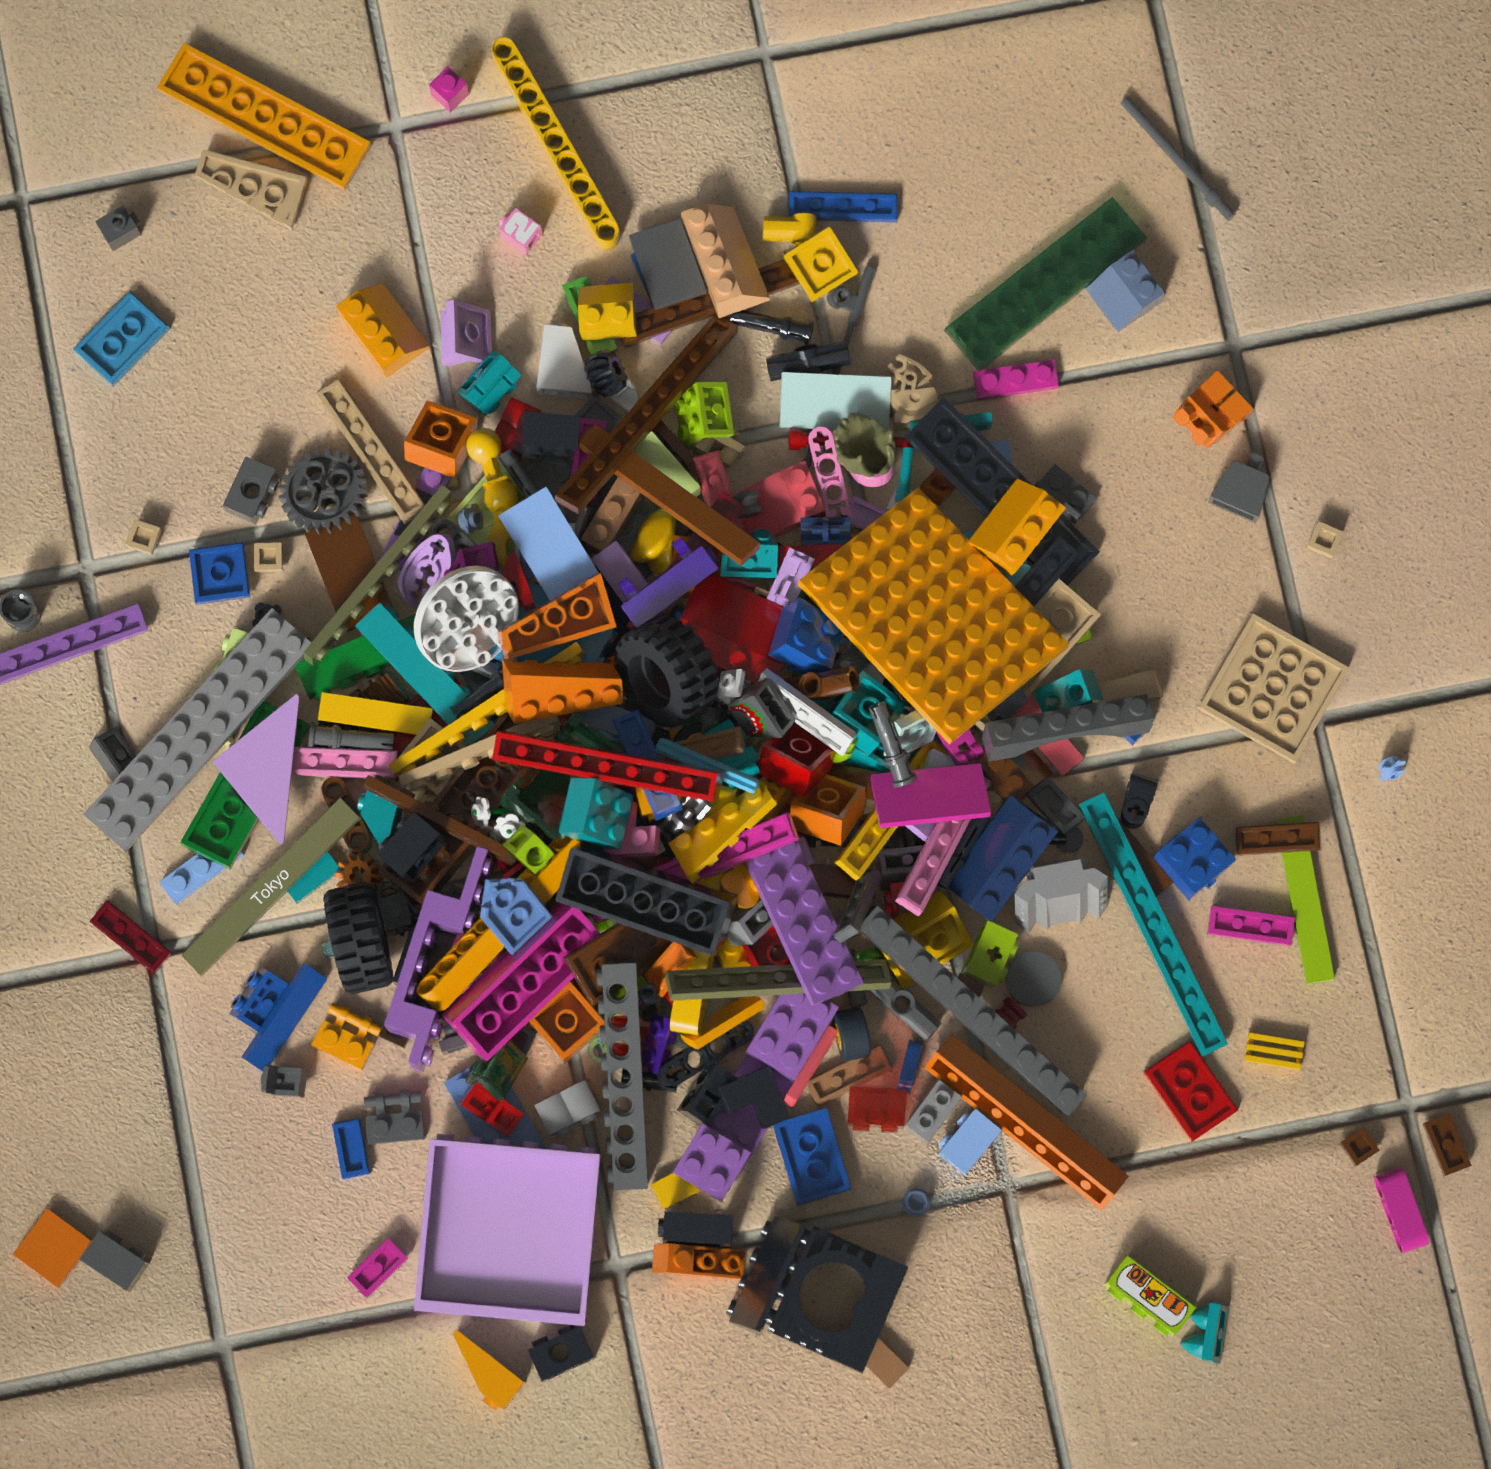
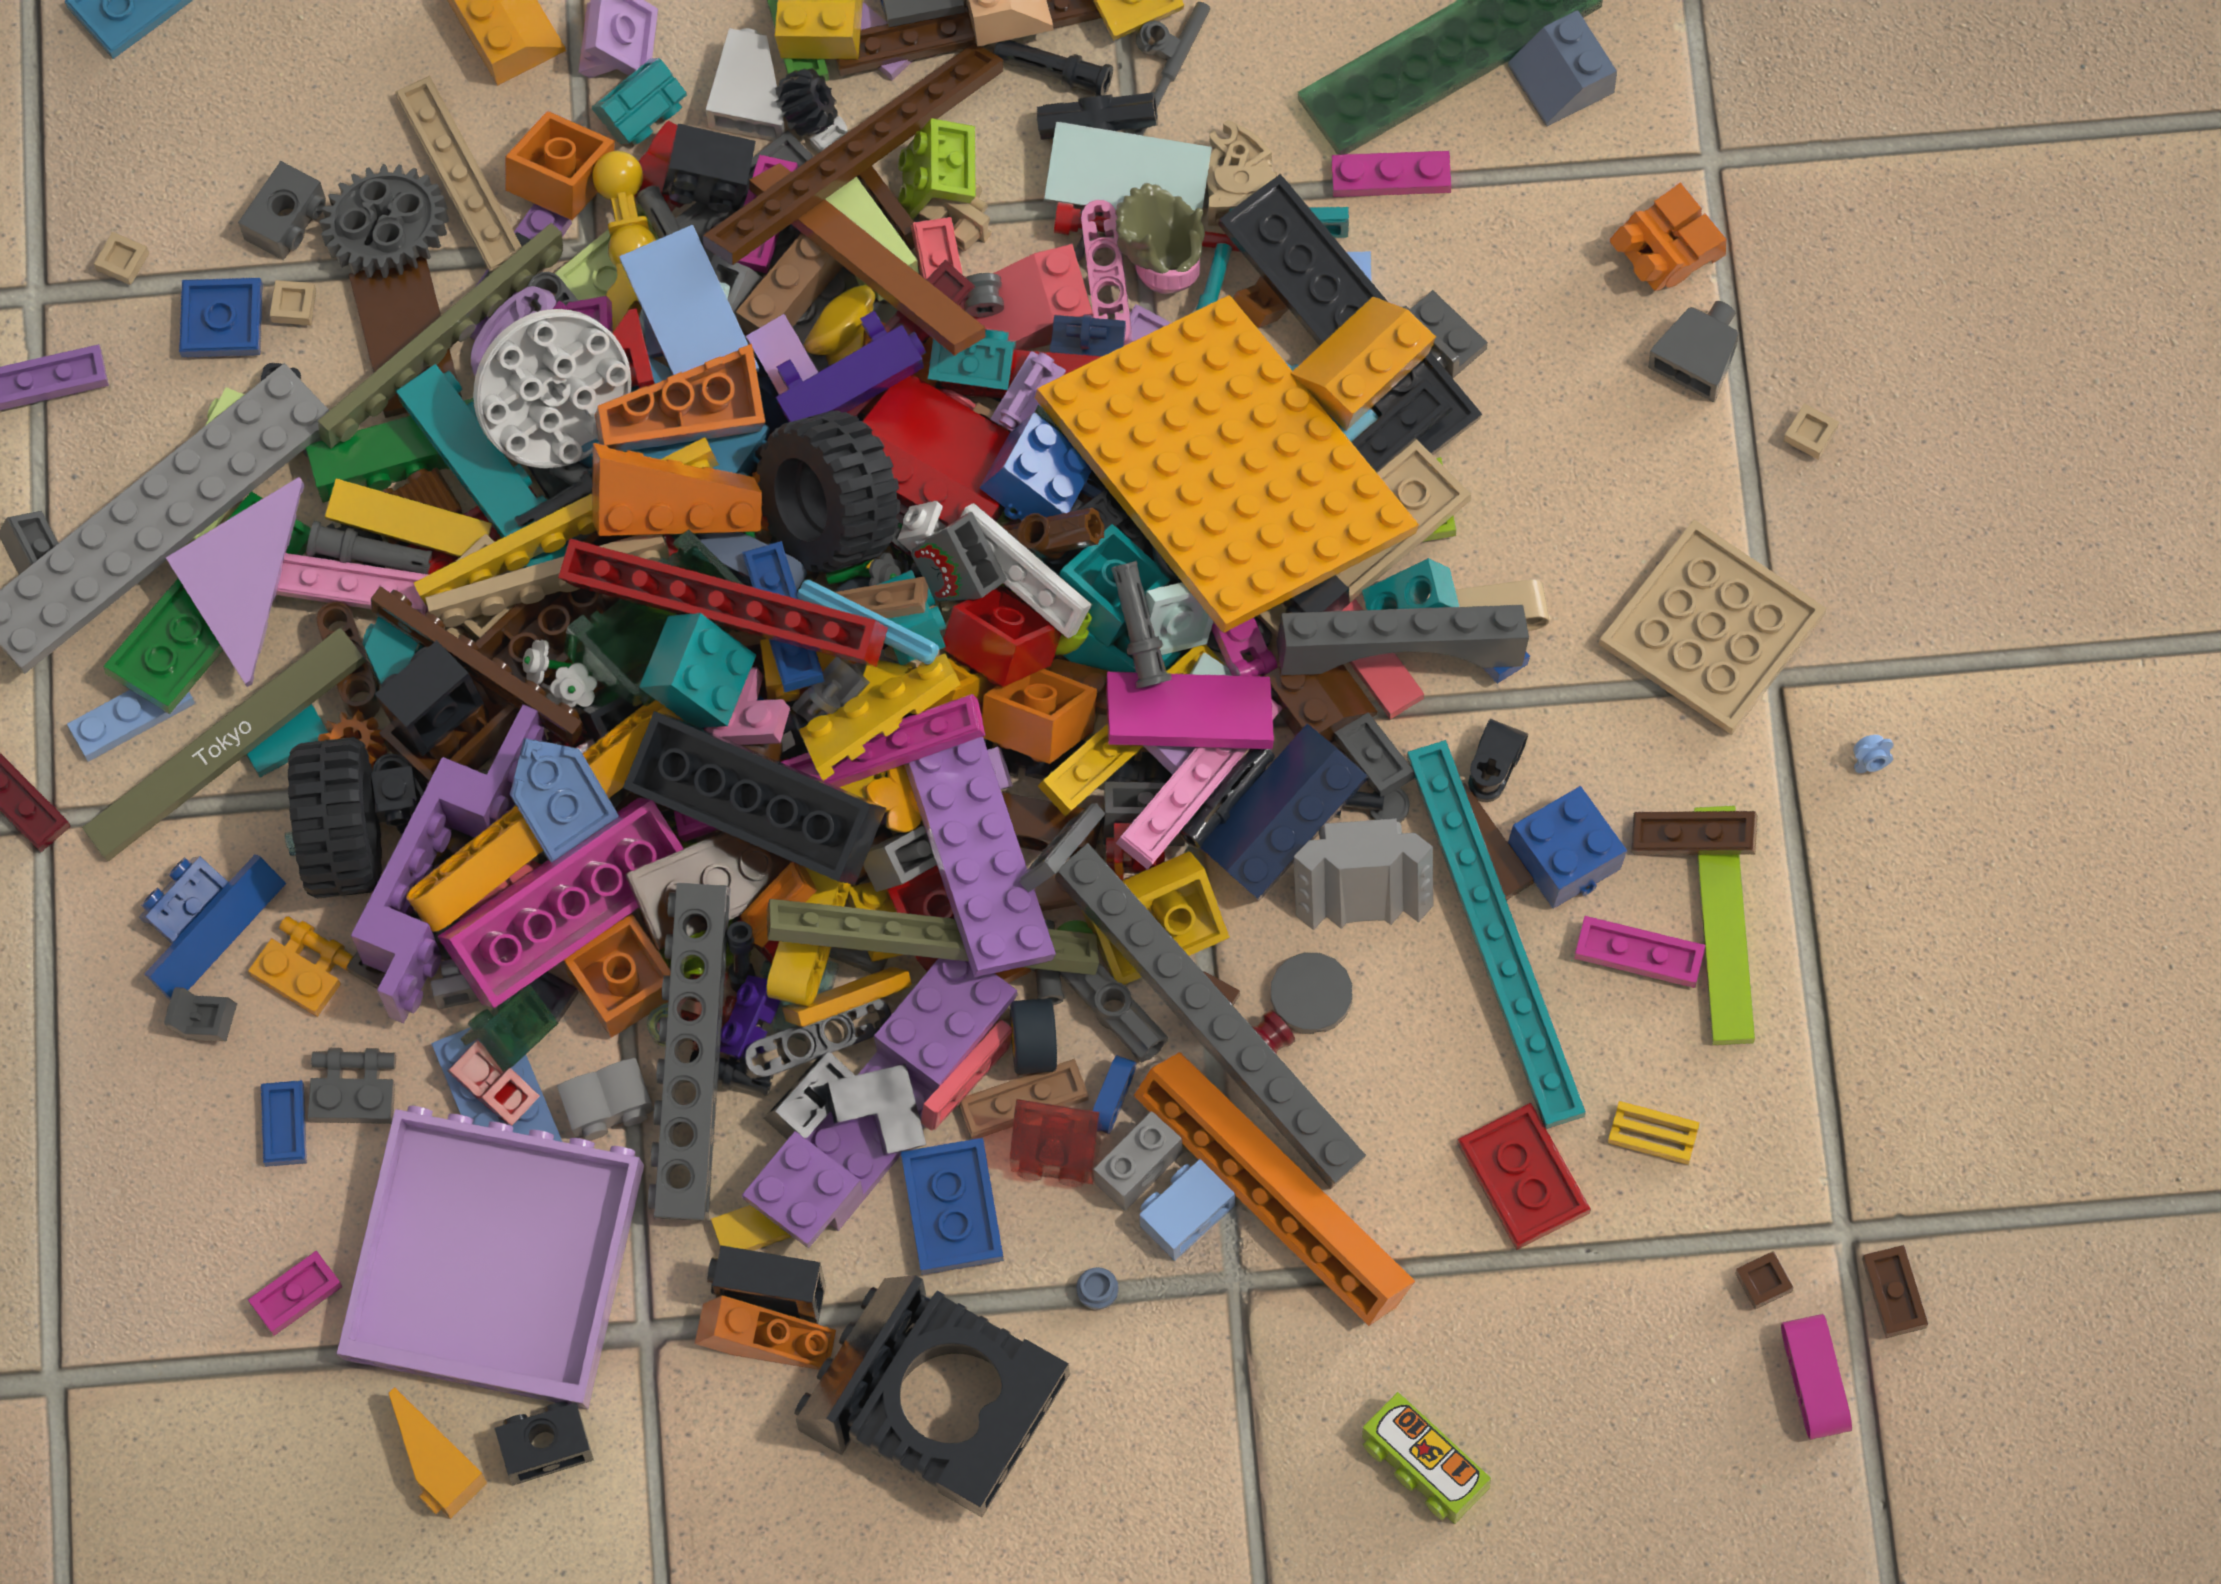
camera: 10 degrees right, 10 degrees down
(470, 519) = (585, 274): sand blue plate -> none
(520, 844) = (581, 705): lime brick -> none
(885, 1364) = (1020, 1513): medium nougat tile -> none
(991, 937) = (1257, 926): lime brick -> none
(1209, 1344) = (1508, 1538): teal tile -> none

